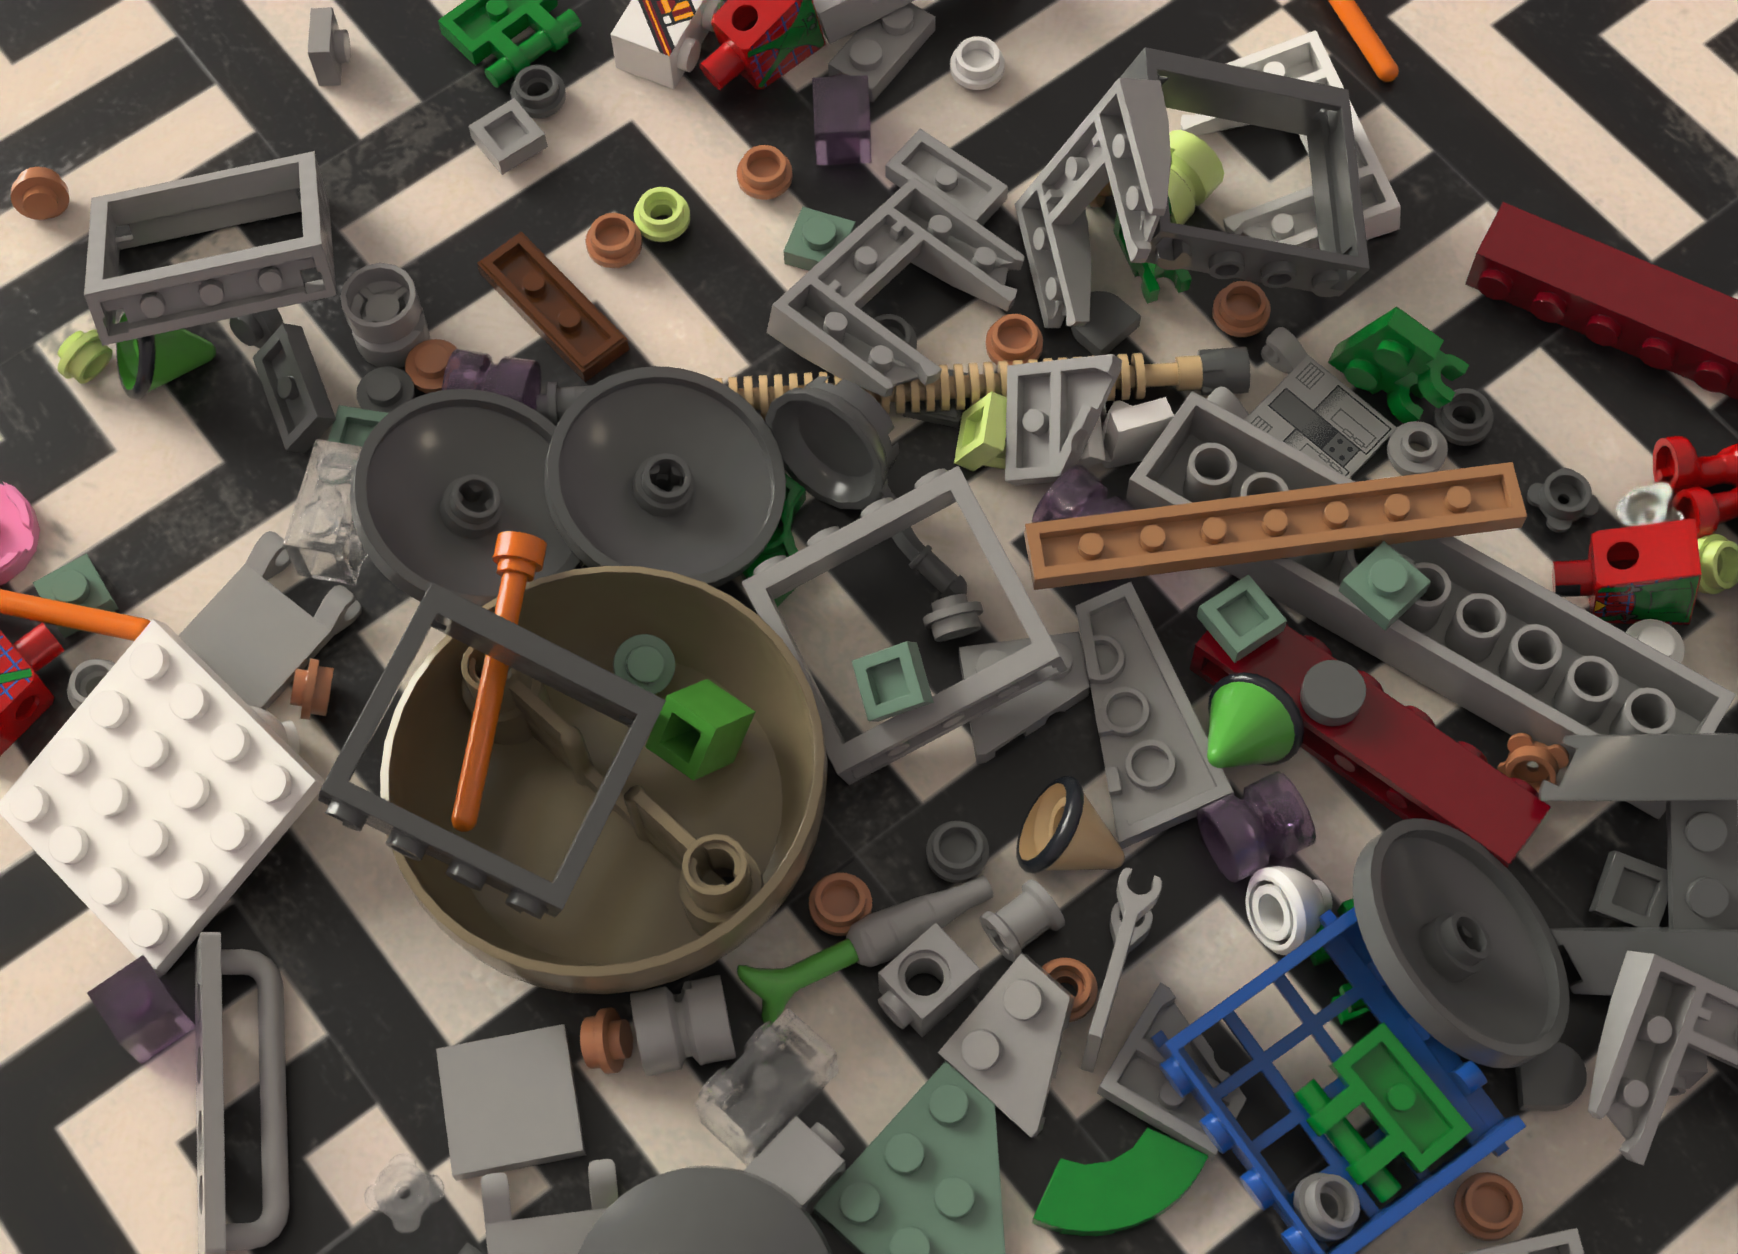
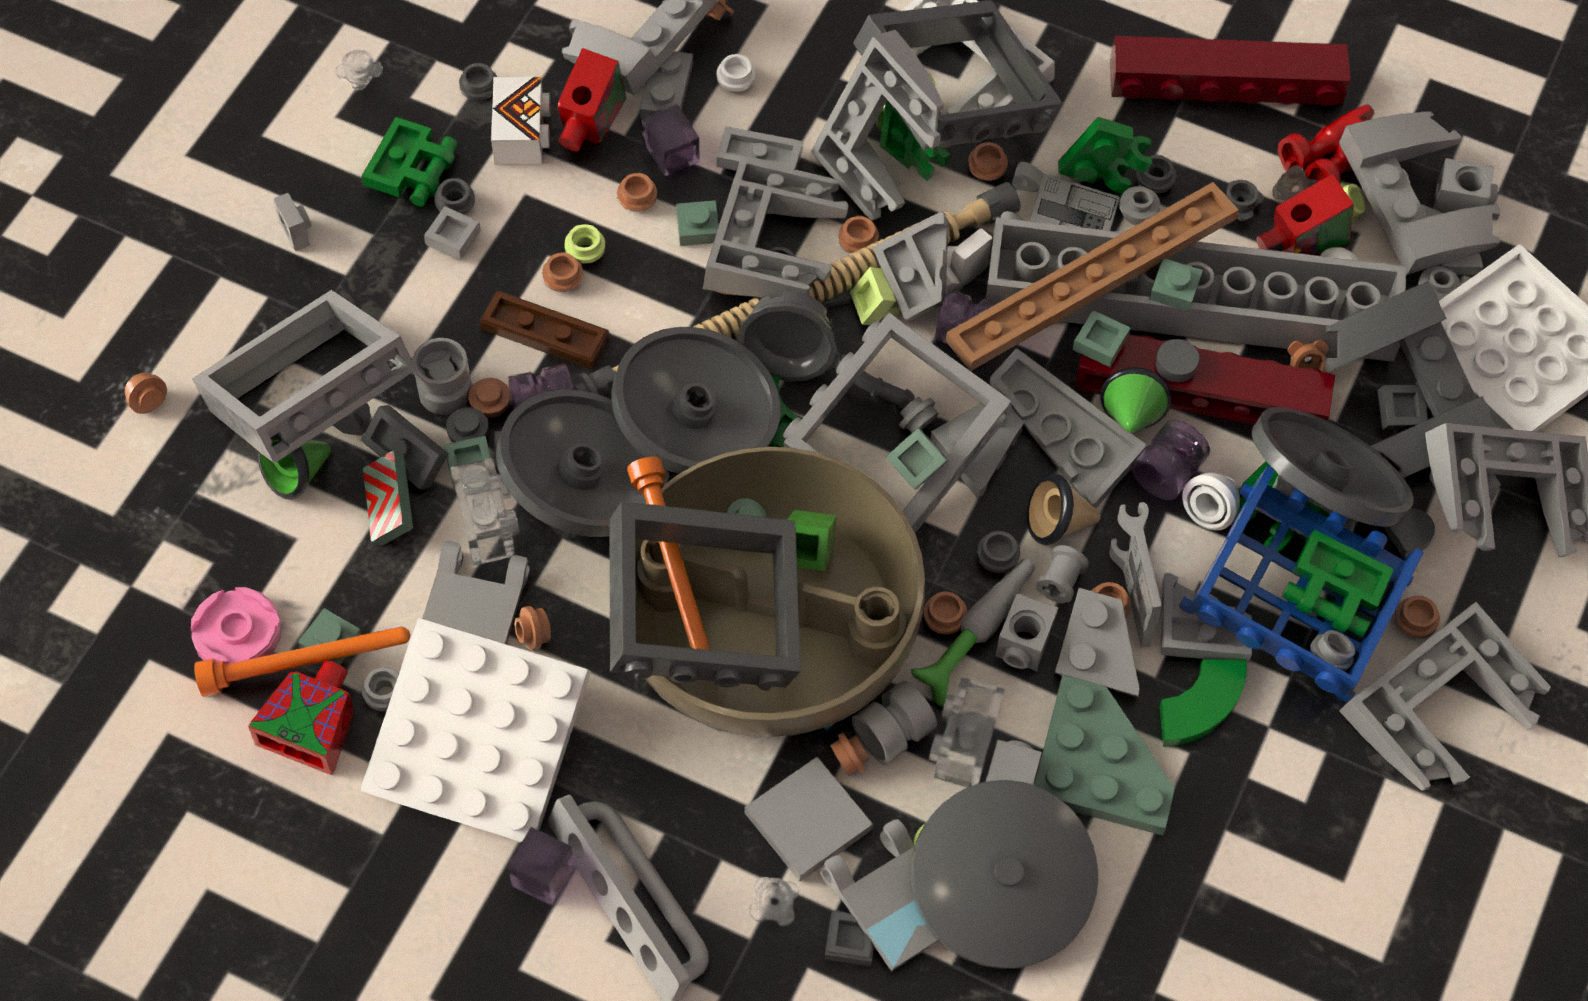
camera: 30 degrees left, 5 degrees down
(83, 356) = (243, 484): yellowish green plate -> none
(238, 445) = (387, 498): none -> sand green tile
(1108, 325) = (915, 201): dark grey tile -> none

